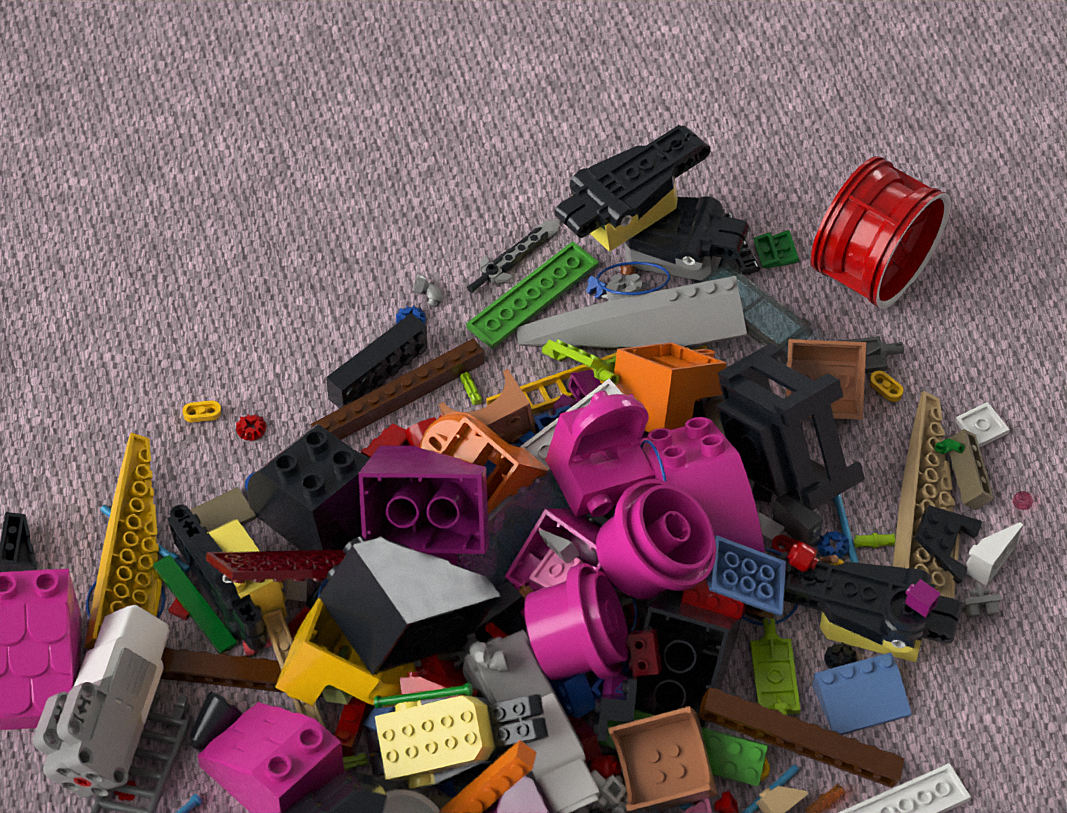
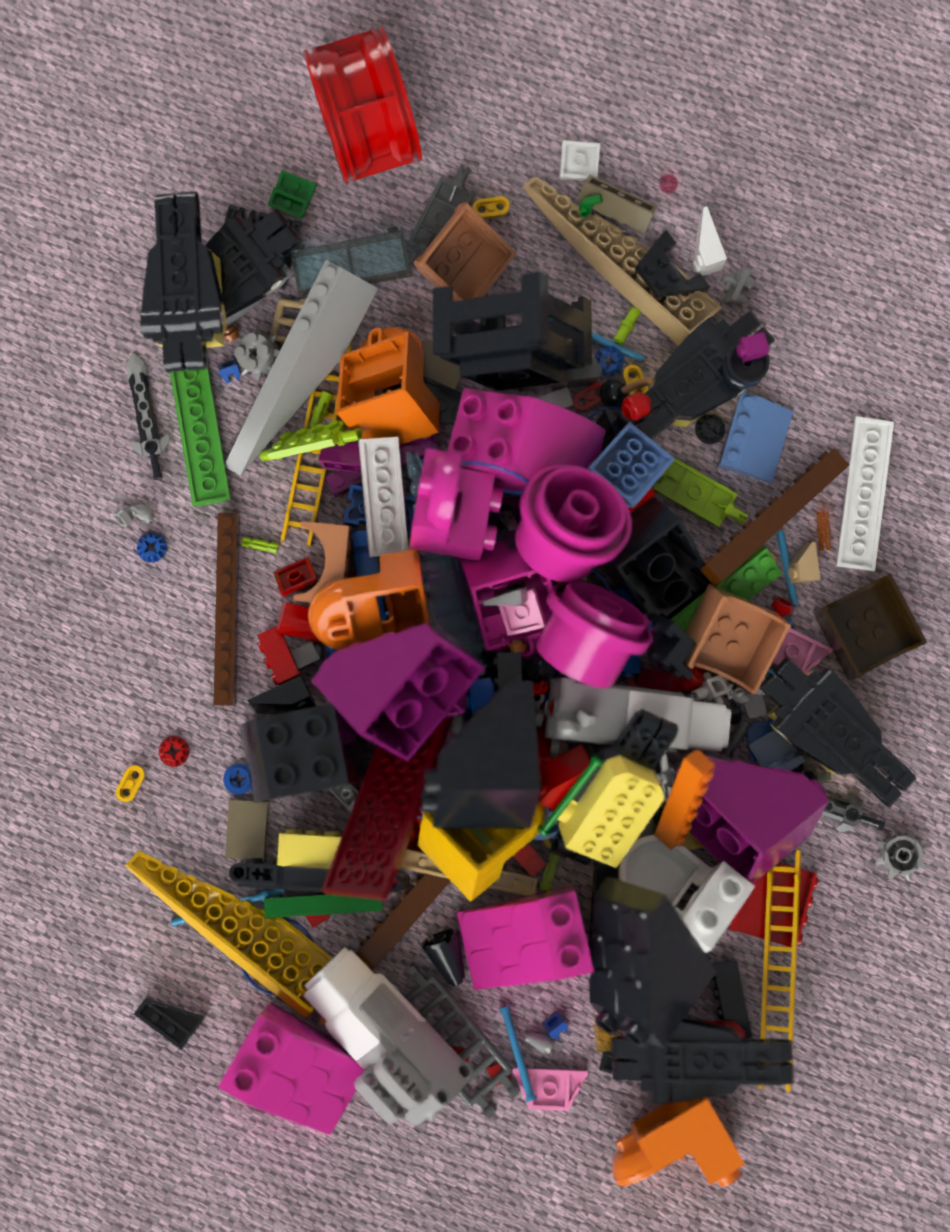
camera: 55 degrees left, 30 degrees up
(377, 361) = (185, 607): black brick -> none
(633, 293) = (278, 353): blue piece -> none
(644, 652) = (644, 594): dark red brick -> none

